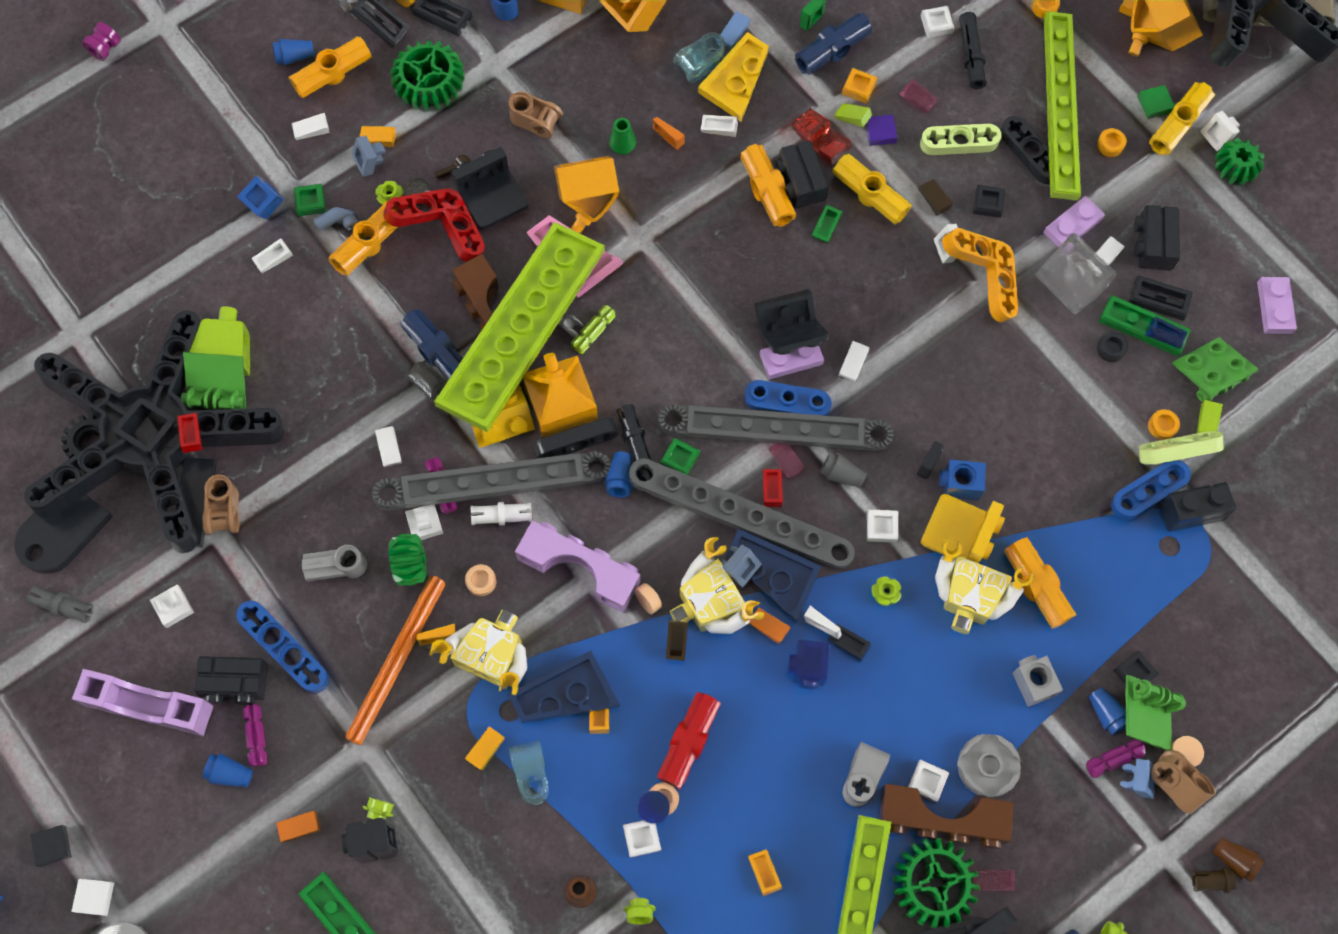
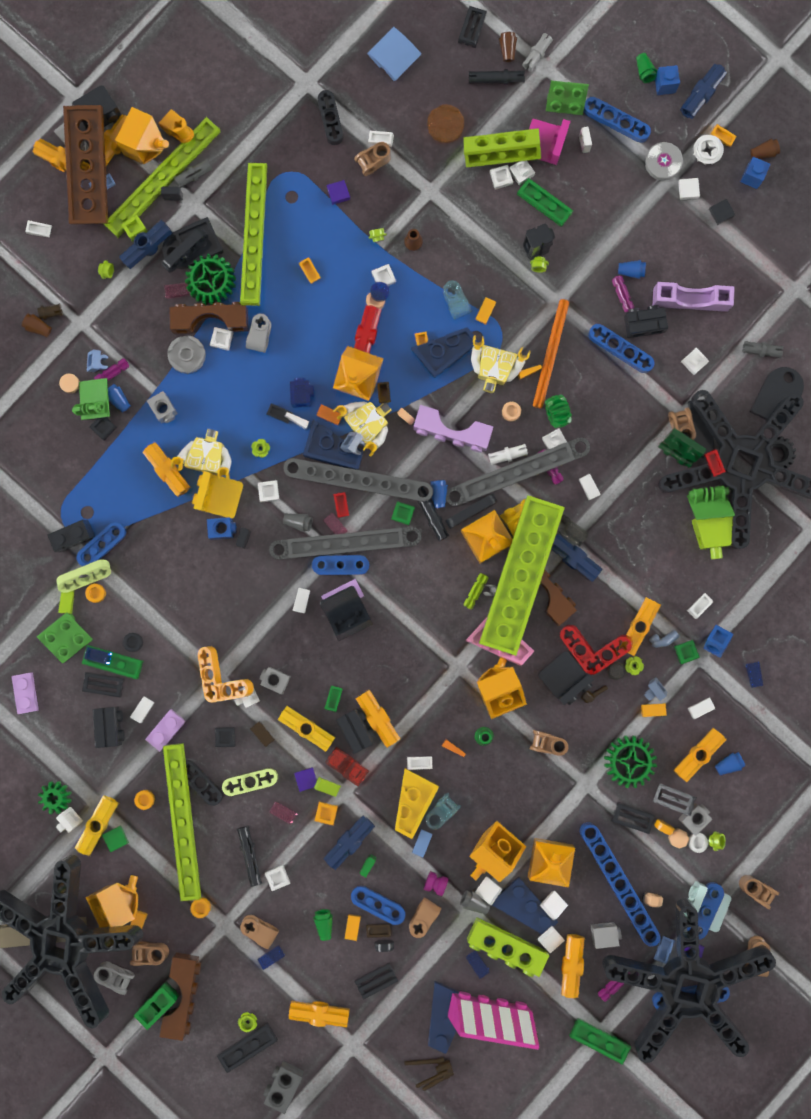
camera: 175 degrees right, 15 degrees up
(223, 157) = (754, 674): none -> clear blue piece
(233, 469) = (689, 449): none -> dark green plate
(298, 826) = (583, 248): orange piece -> none
(332, 564) = (604, 402): light grey piece -> none
(714, 669) = (358, 373): none -> light orange piece
(908, 246) = (283, 680): none -> light grey brick
(1076, 274) = (161, 685): clear brick -> none
(1183, 782) = (70, 362): medium nougat piece -> none

